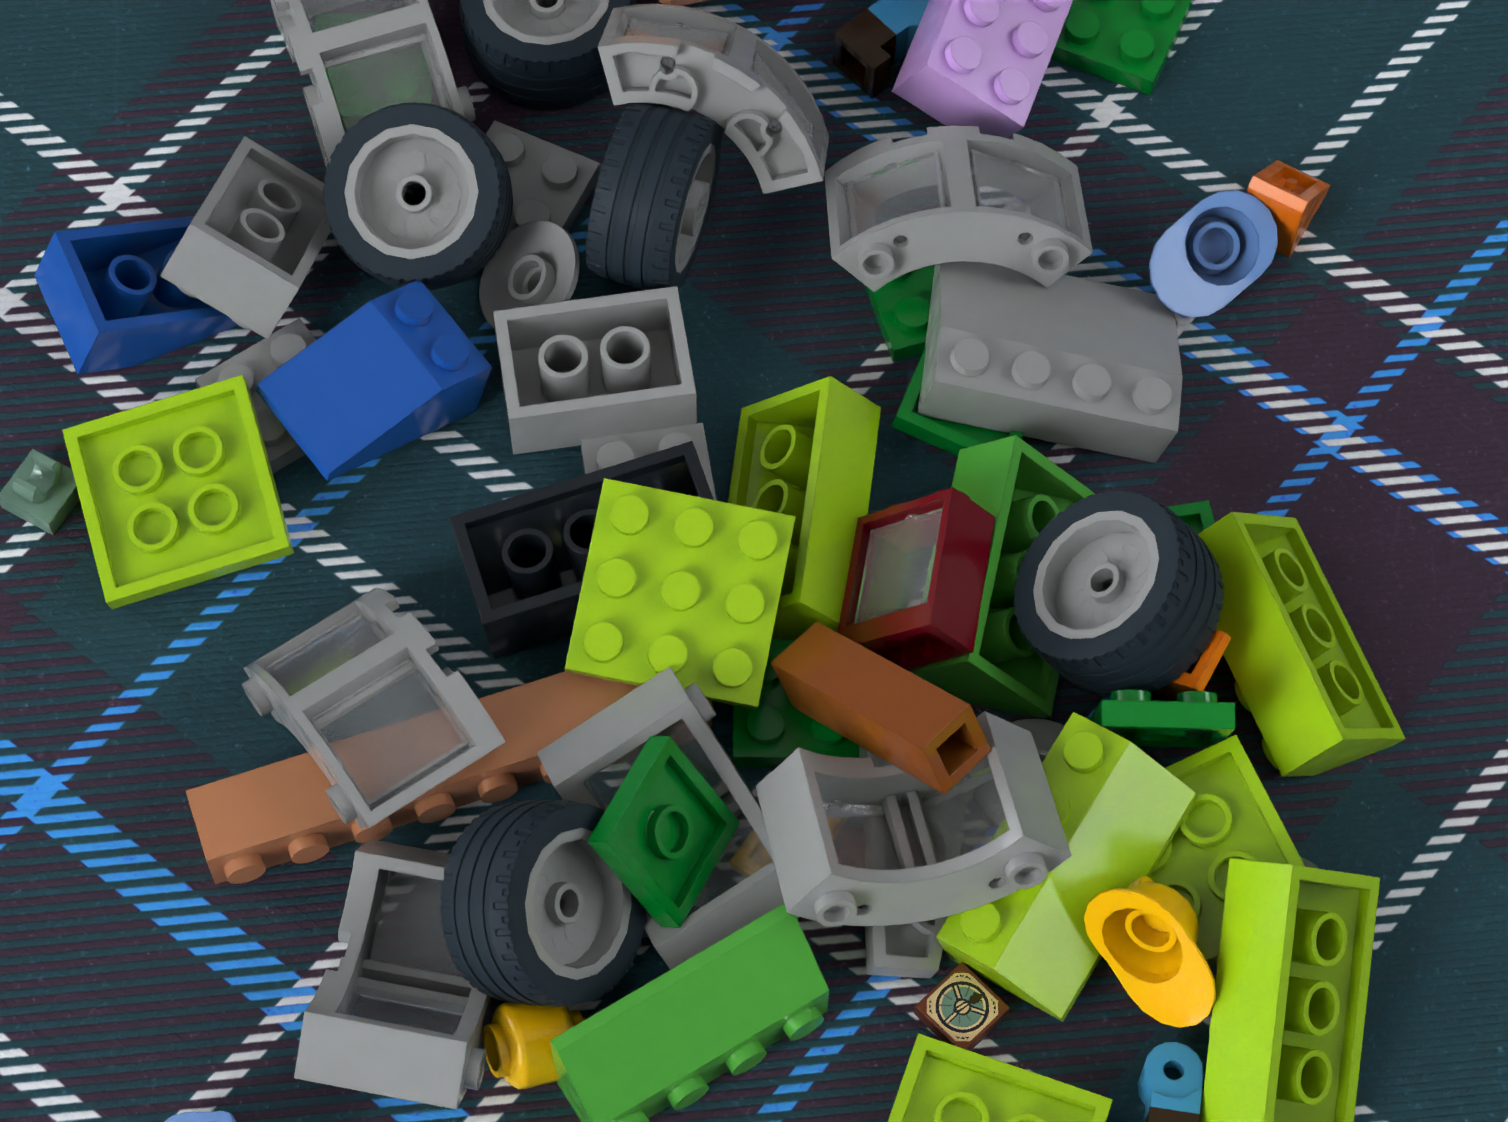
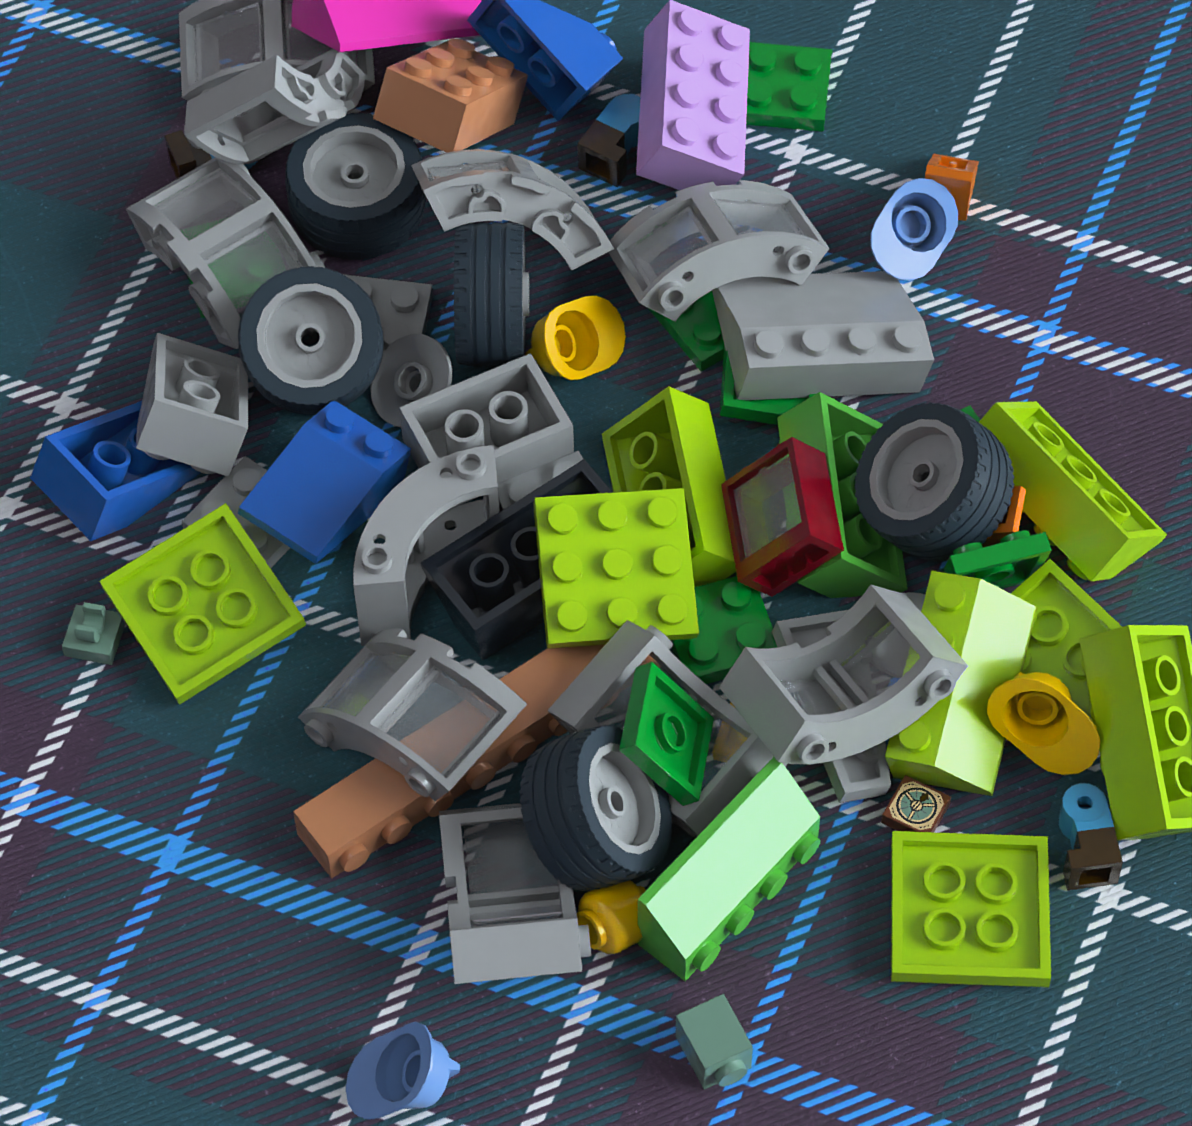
camera: 15 degrees left, 5 degrees down
(450, 469) = (414, 527): none -> light grey window
(752, 280) = (578, 338): none -> yellow piece
(881, 707) = (792, 604): dark orange brick -> none

